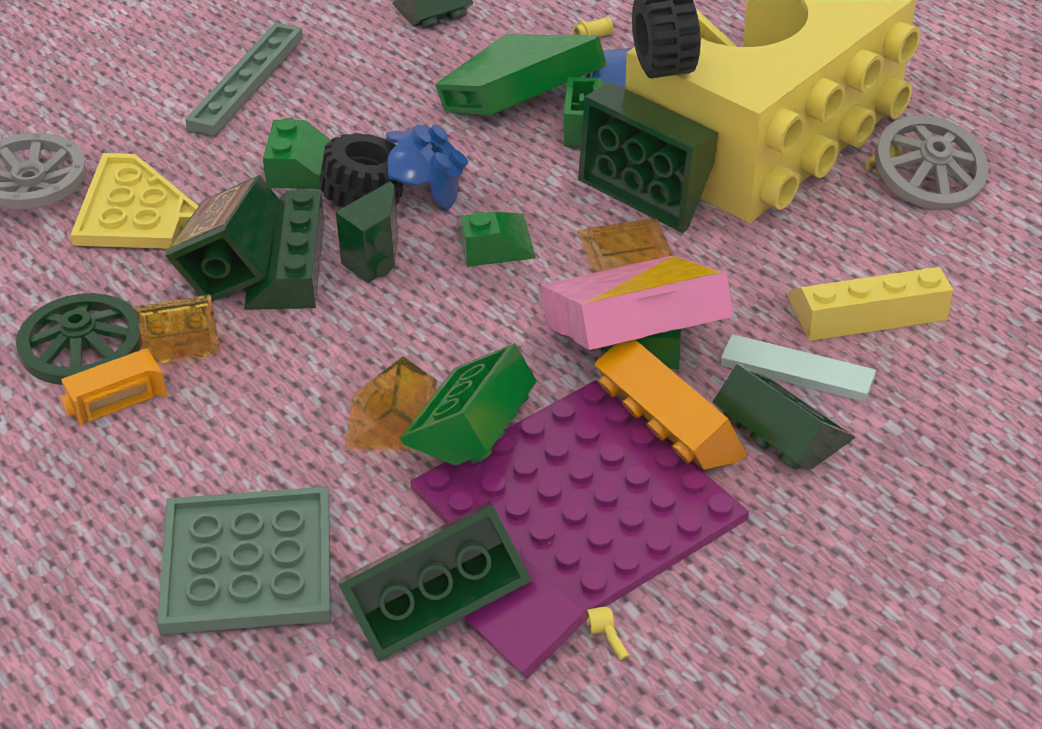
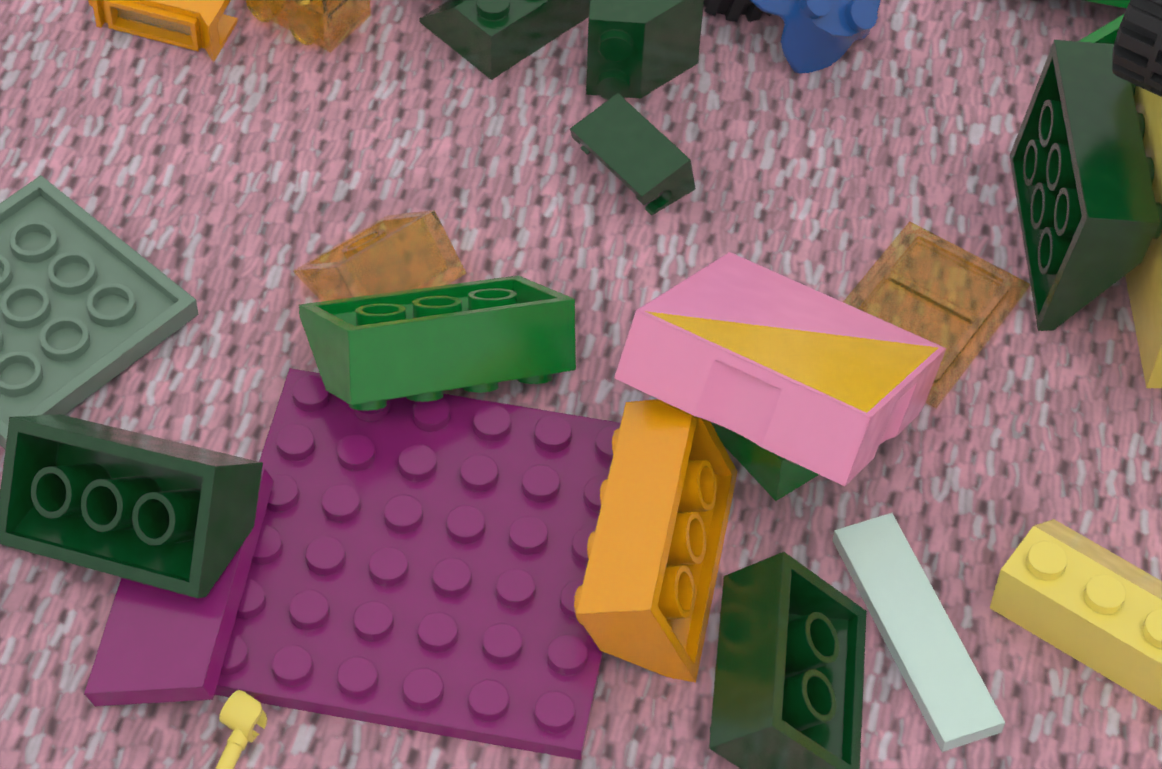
camera: 45 degrees right, 10 degrees up
(434, 280) = (636, 153): none -> dark green hinge
(494, 238) = (791, 150): green slope -> none

